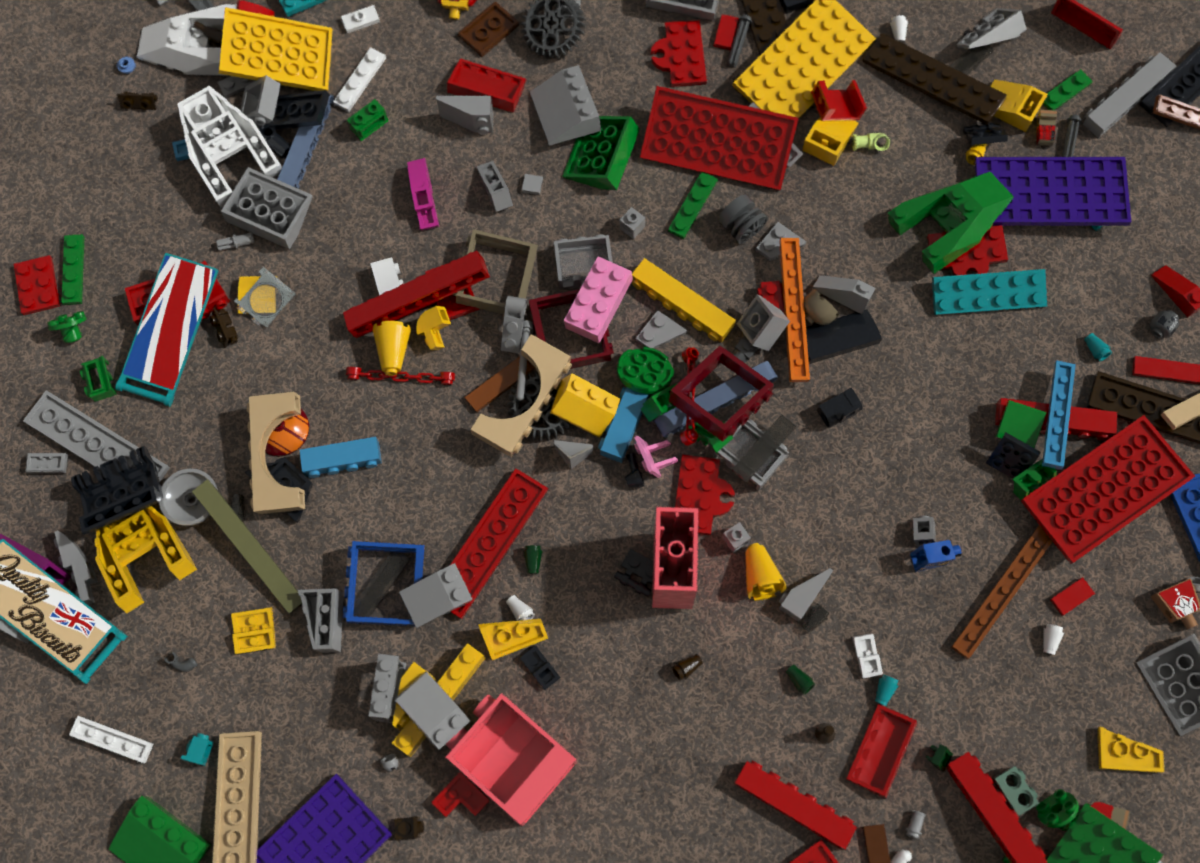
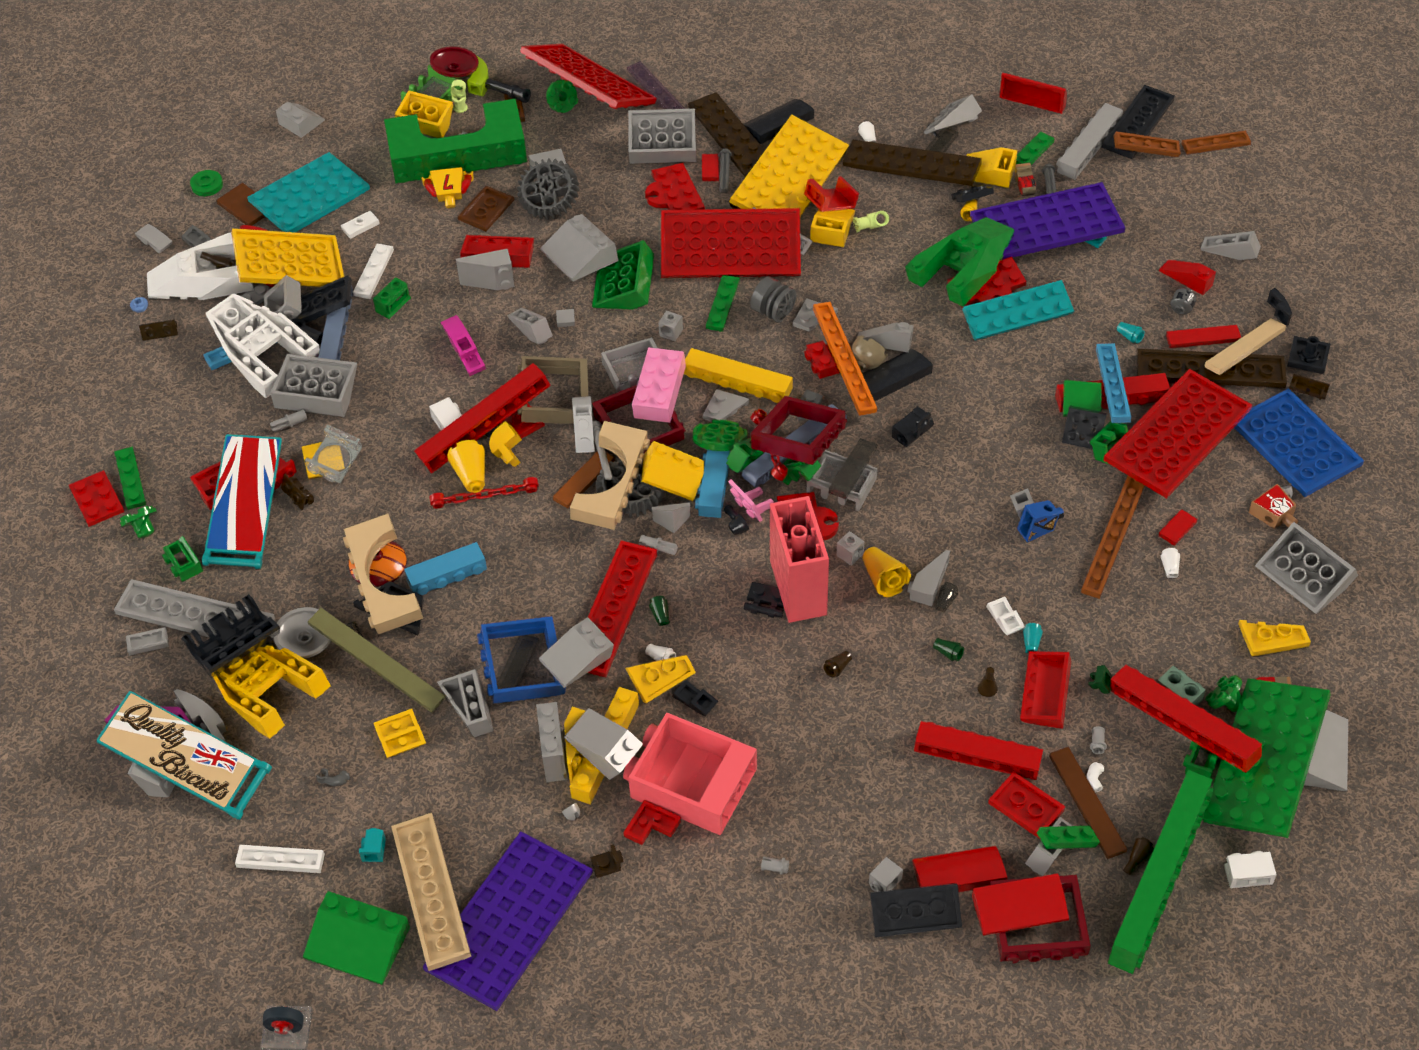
camera: 15 degrees left, 20 degrees down
(550, 481) = (659, 544): none -> light grey axle
(762, 323) = (818, 374): light grey slope -> none

